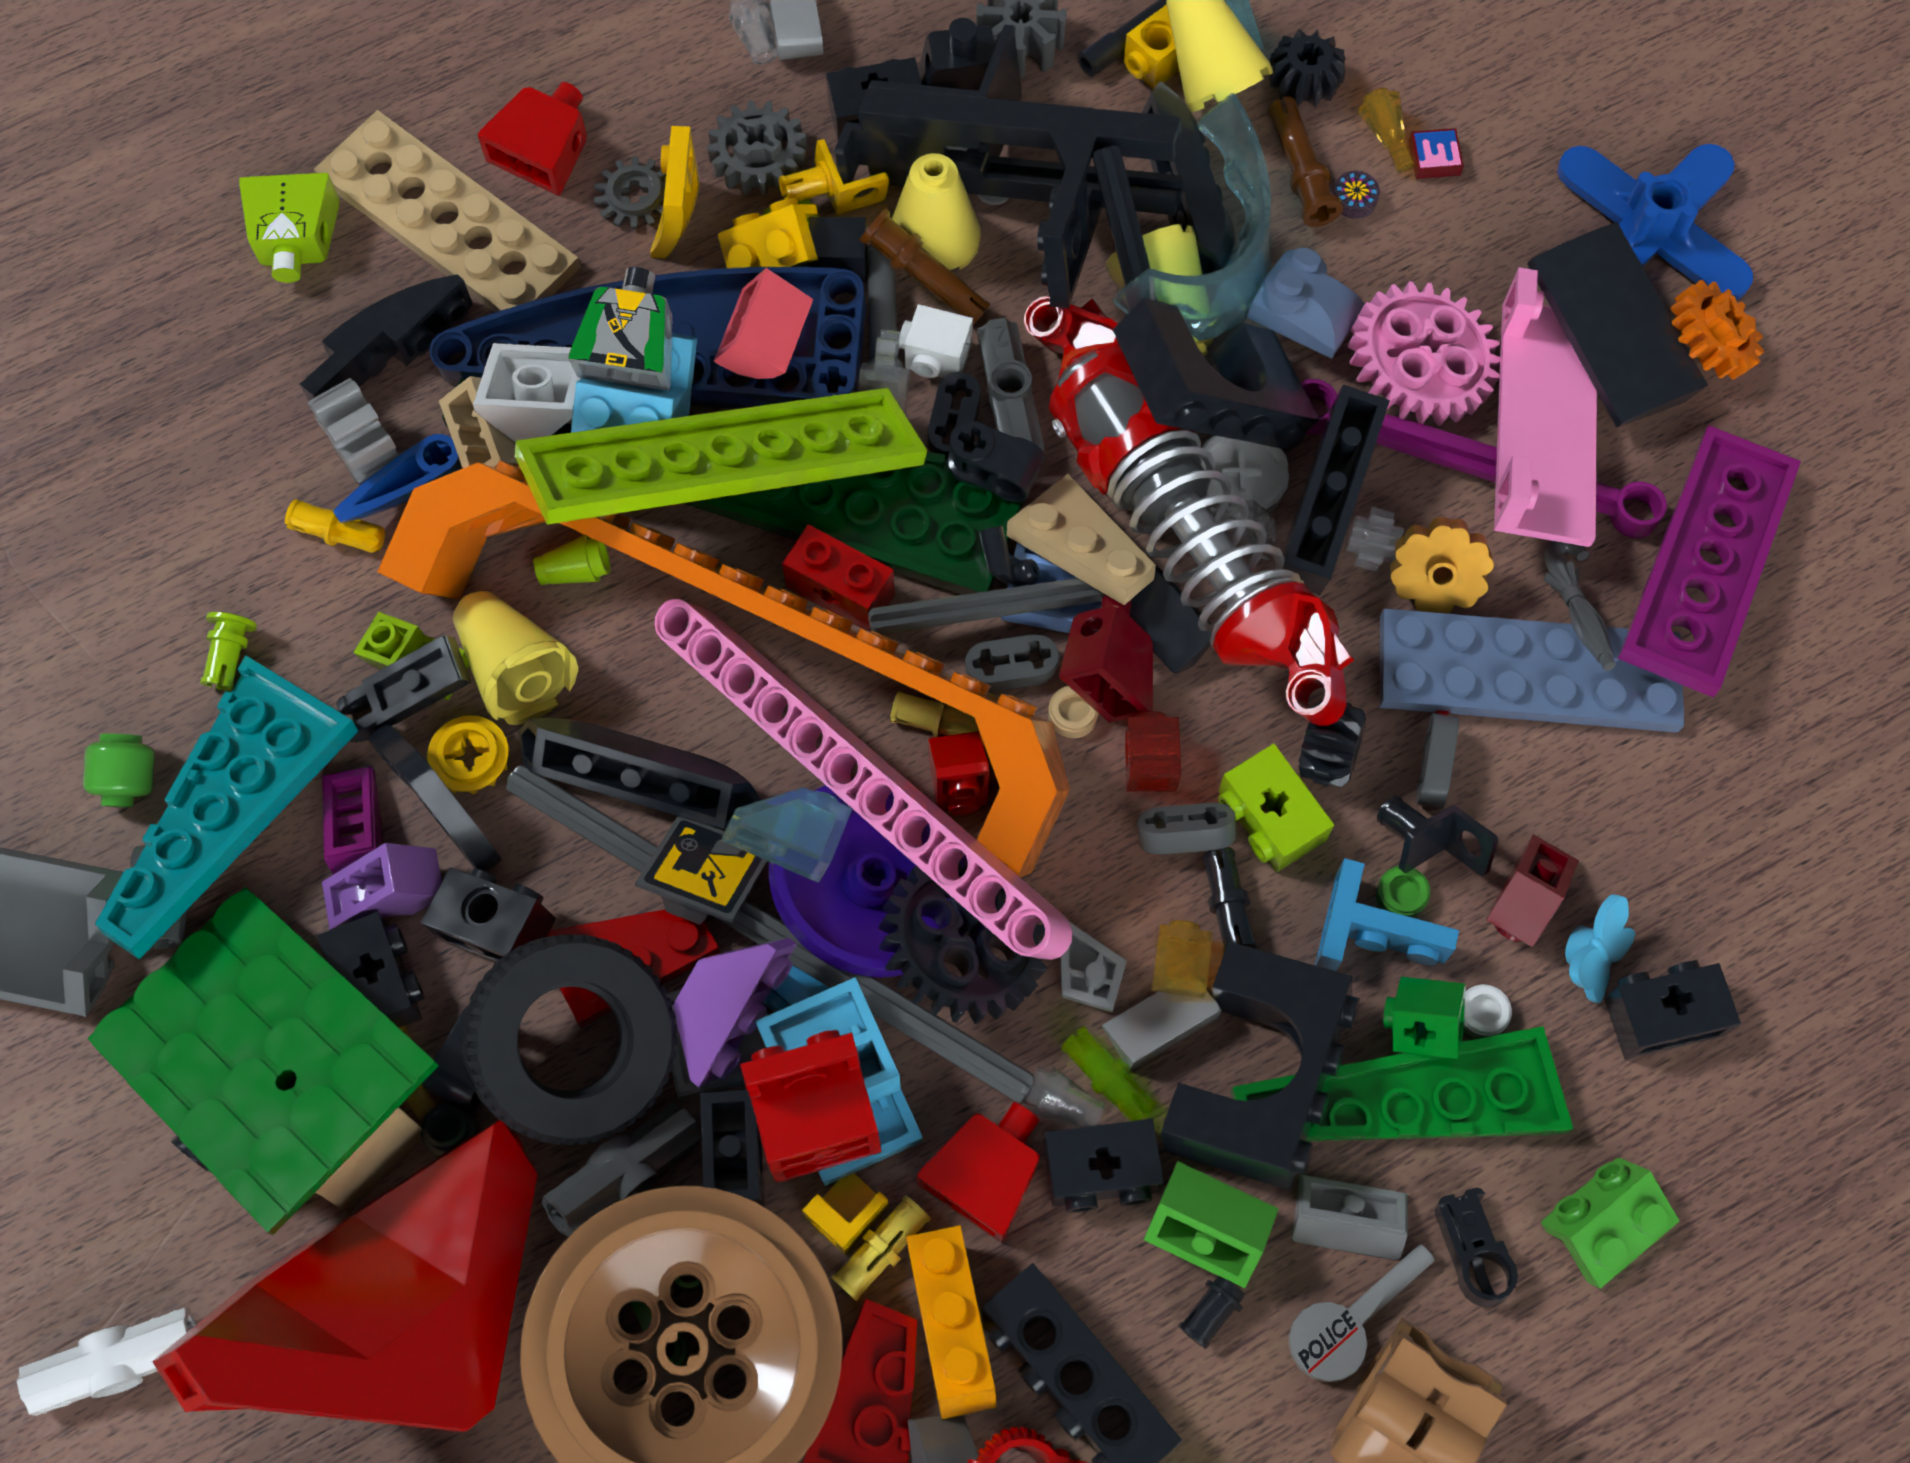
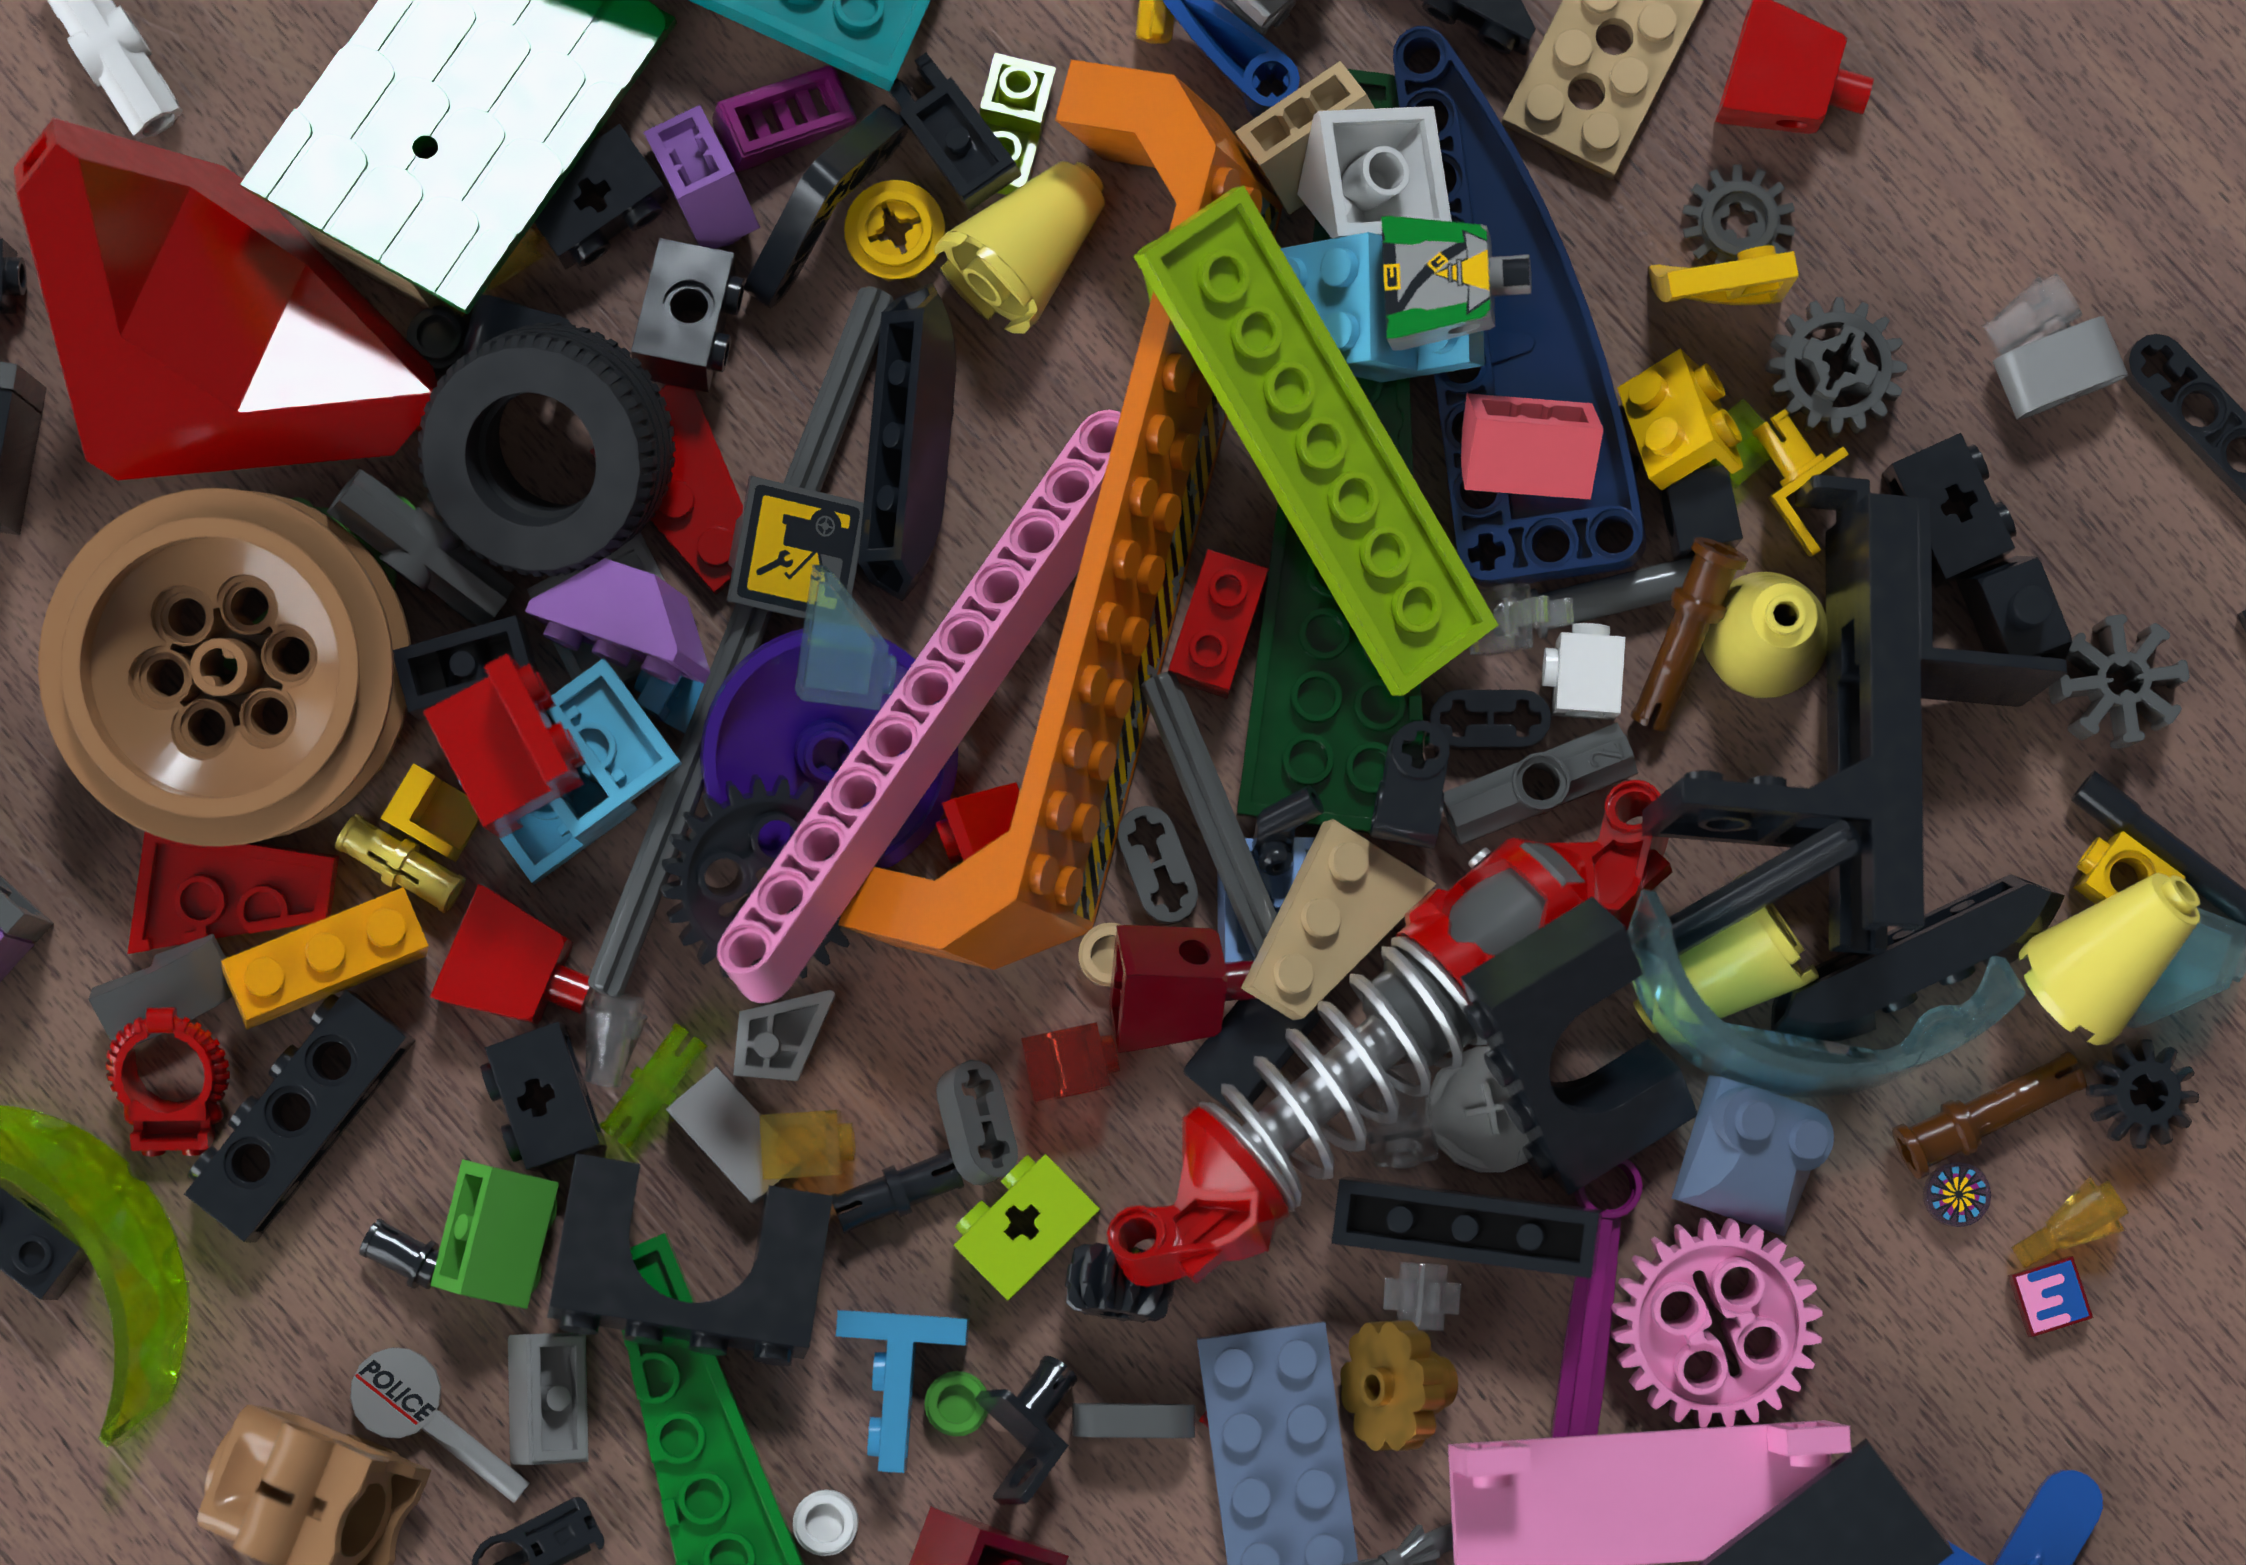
camera: 80 degrees right, 15 degrees up
(1427, 1017) = (791, 1450): green brick -> none

